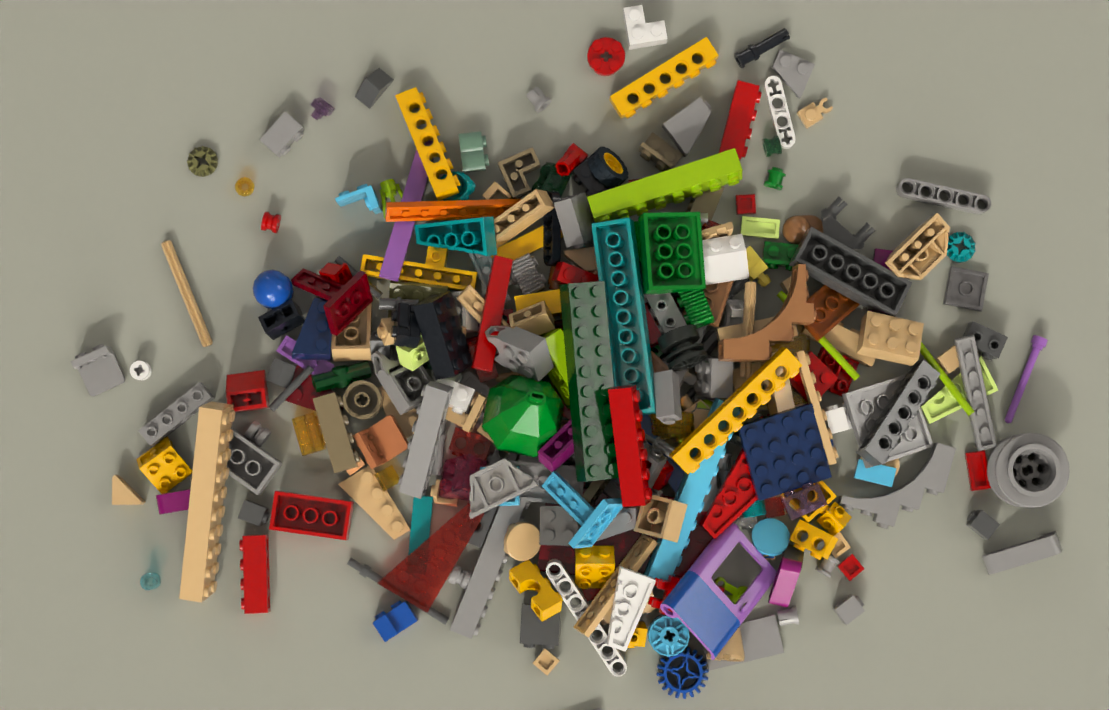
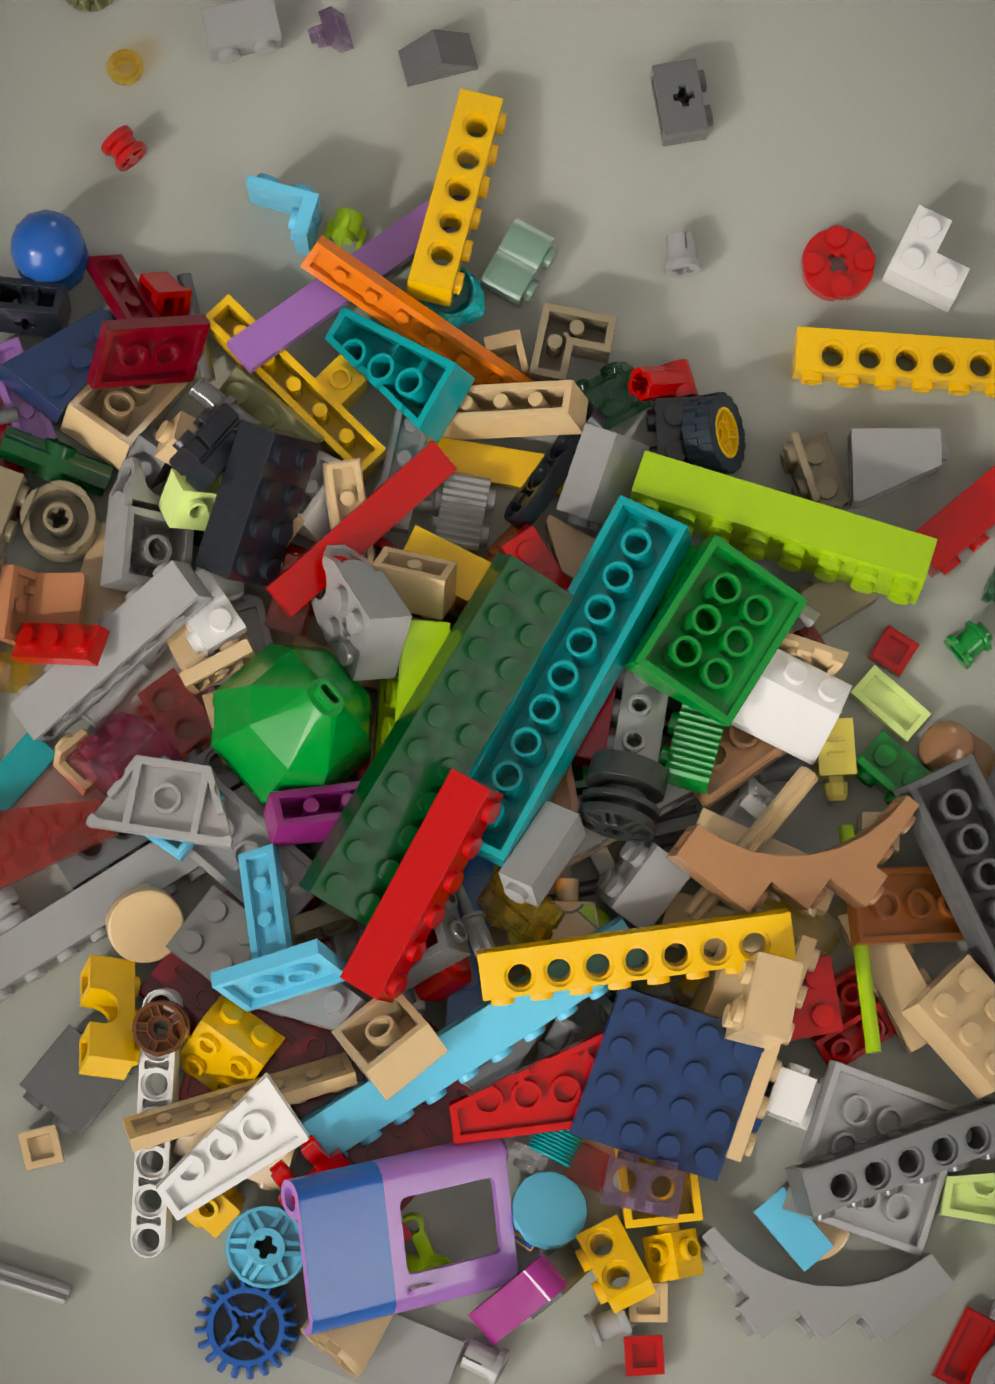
camera: 30 degrees right, 5 degrees down
(403, 451) = (60, 644): none -> red plate
(480, 29) = (676, 122): none -> dark grey brick
(555, 583) = (145, 1028): none -> reddish brown wheel
(803, 391) = (767, 1001): none -> tan brick

